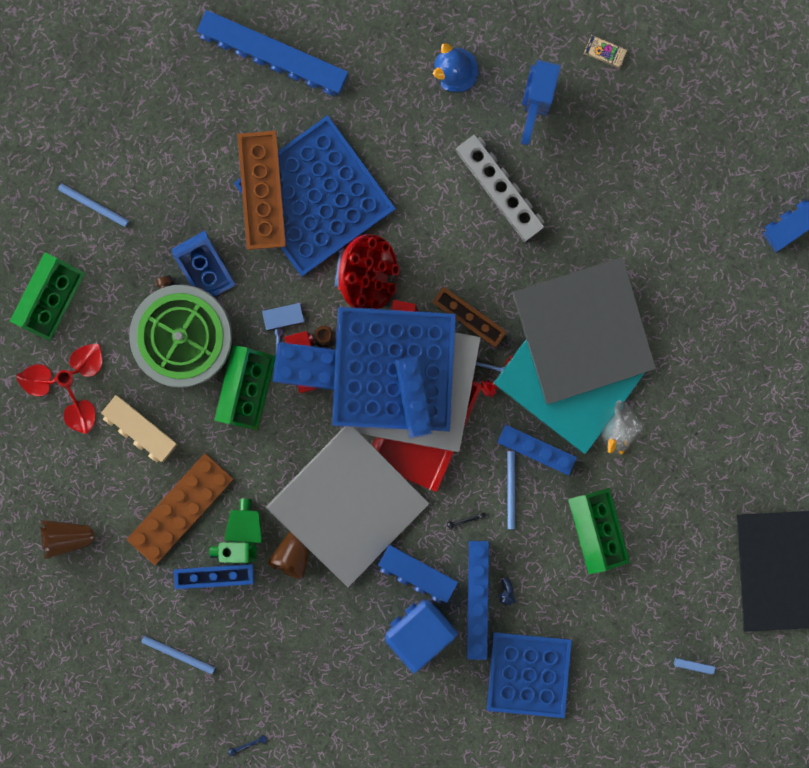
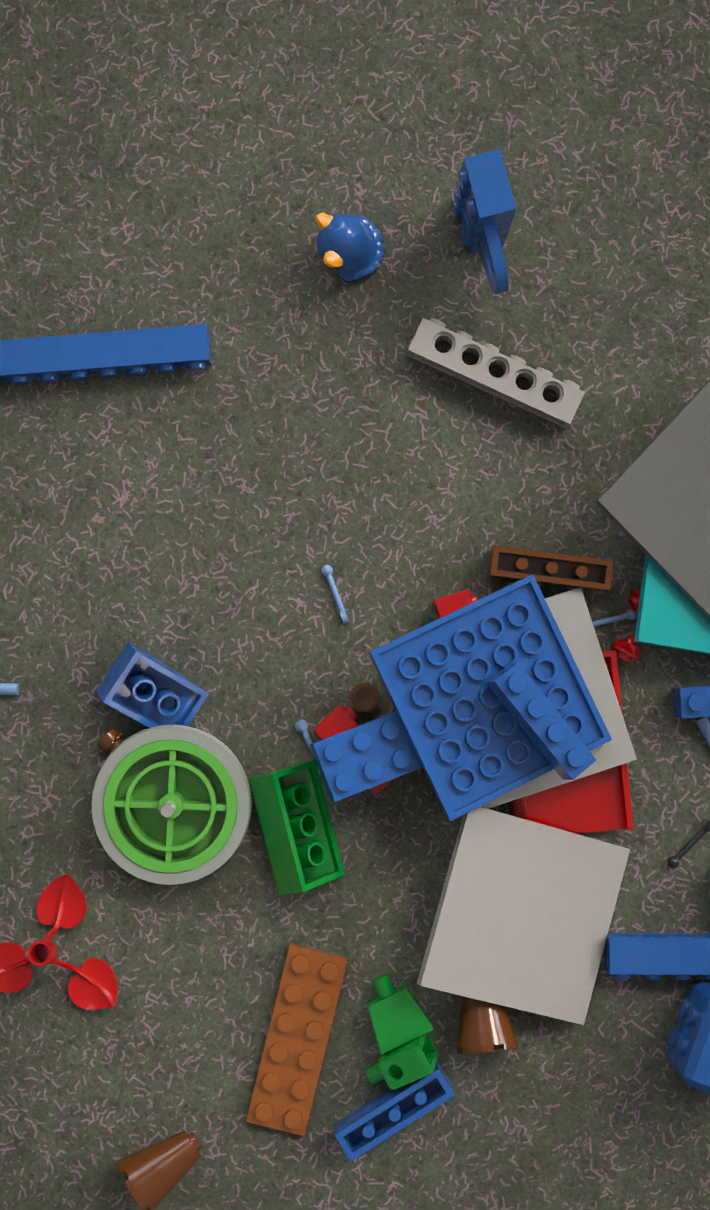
camera: 30 degrees left, 0 degrees up
(139, 429) = (182, 961): tan brick -> none
(261, 190) = (175, 546): dark orange plate -> none
(283, 316) = (296, 701): medium blue tile -> none
(325, 196) = (251, 516): blue plate -> none
(366, 270) = (376, 582): red bracket -> none
(605, 51) = (536, 117): tile -> none

